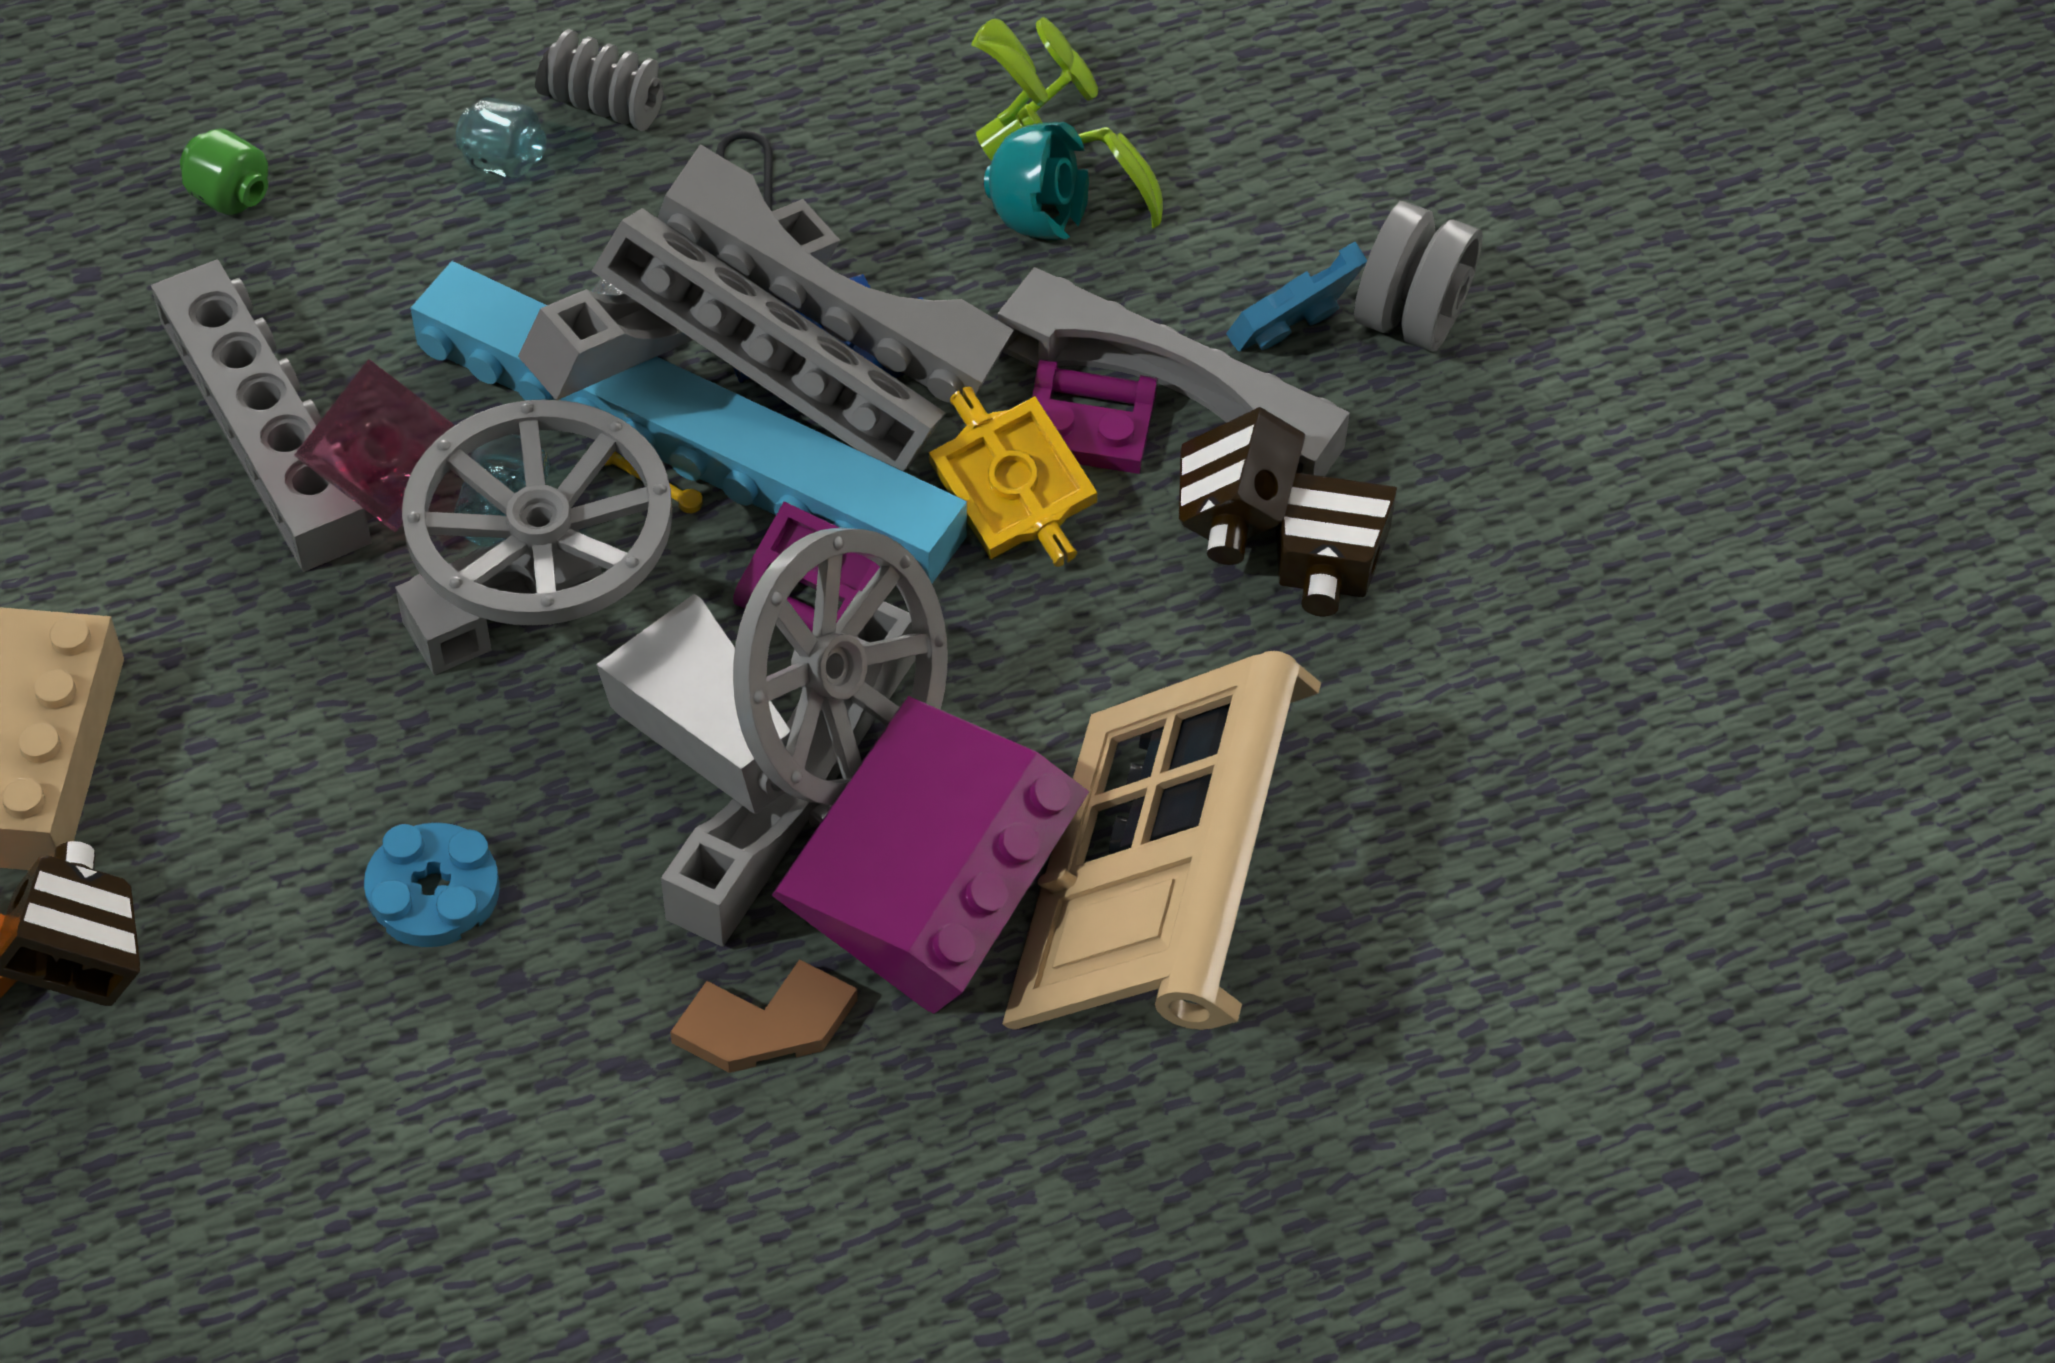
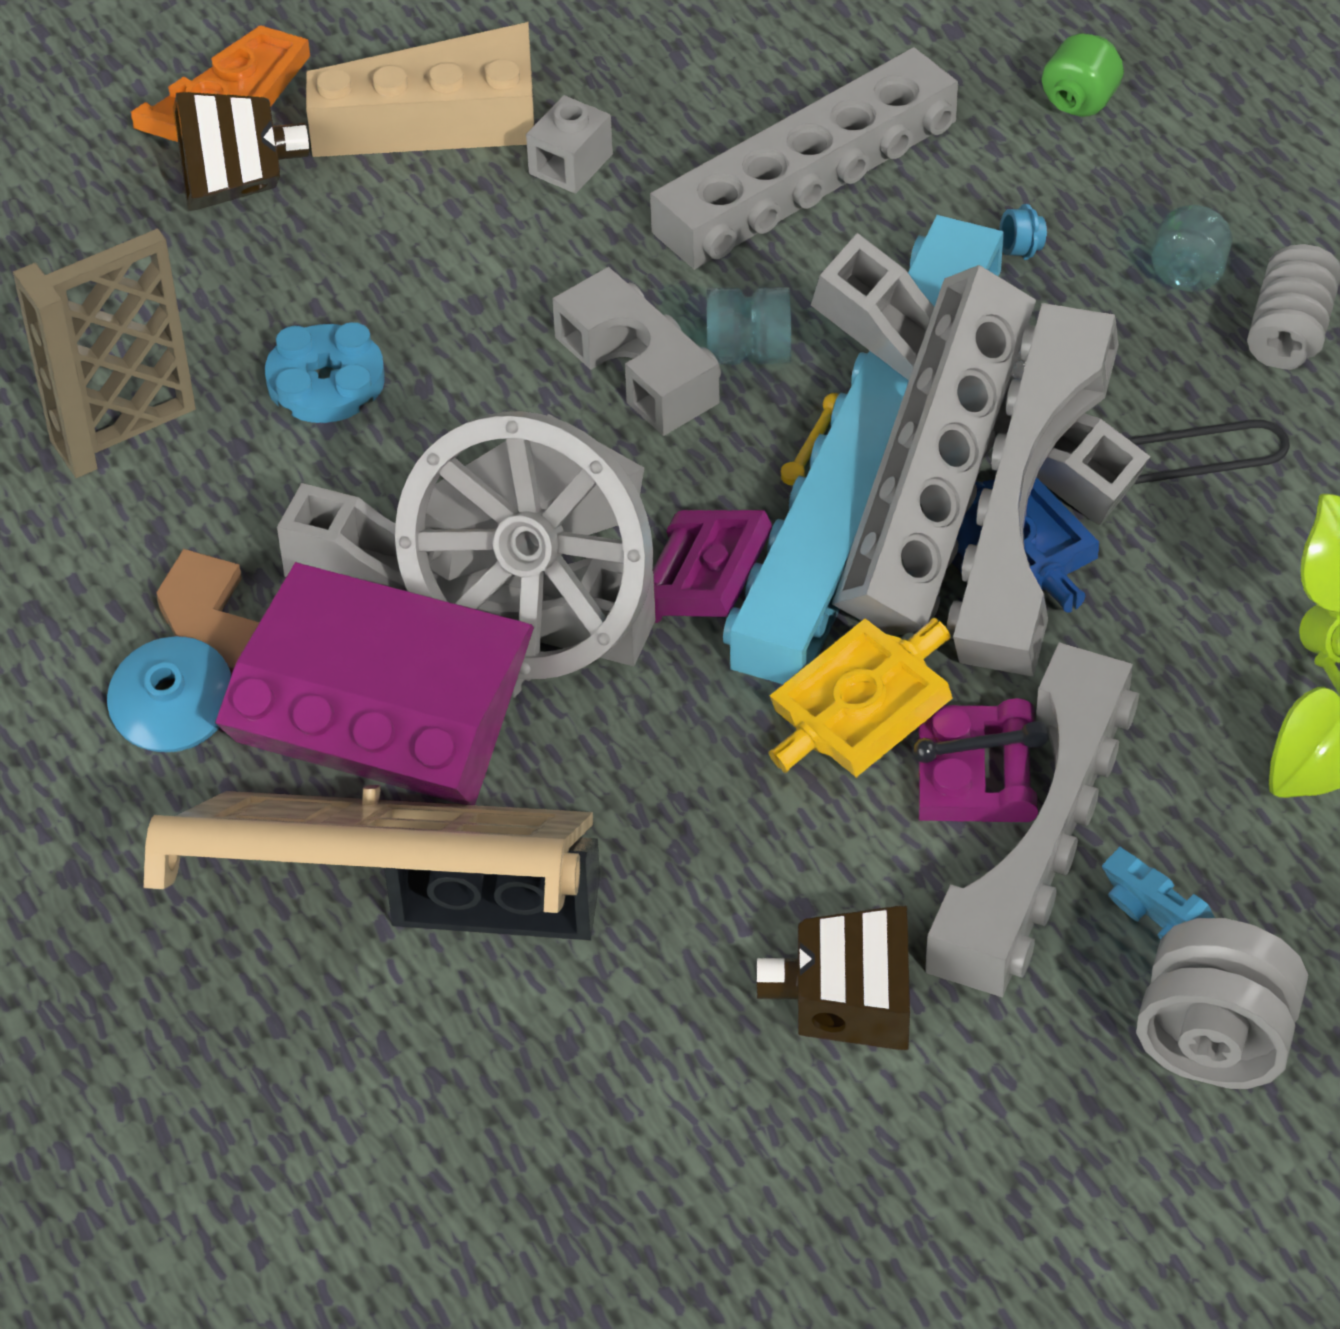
camera: 85 degrees right, 5 degrees down
(163, 612) = (569, 144): none -> light grey brick
(373, 442) = (755, 222): clear pink slope -> none
(419, 274) = (1022, 231): none -> dark azure plate
(453, 1045) = (58, 357): none -> dark tan fence
(538, 515) = (684, 329): light grey wheel -> none
(864, 1088) = (175, 716): none -> dark azure dish
(1035, 170) = (1272, 654): teal cylinder -> none
(1084, 440) = (1032, 735): none -> black hinge
(1238, 481) = (904, 867): dark brown torso -> none

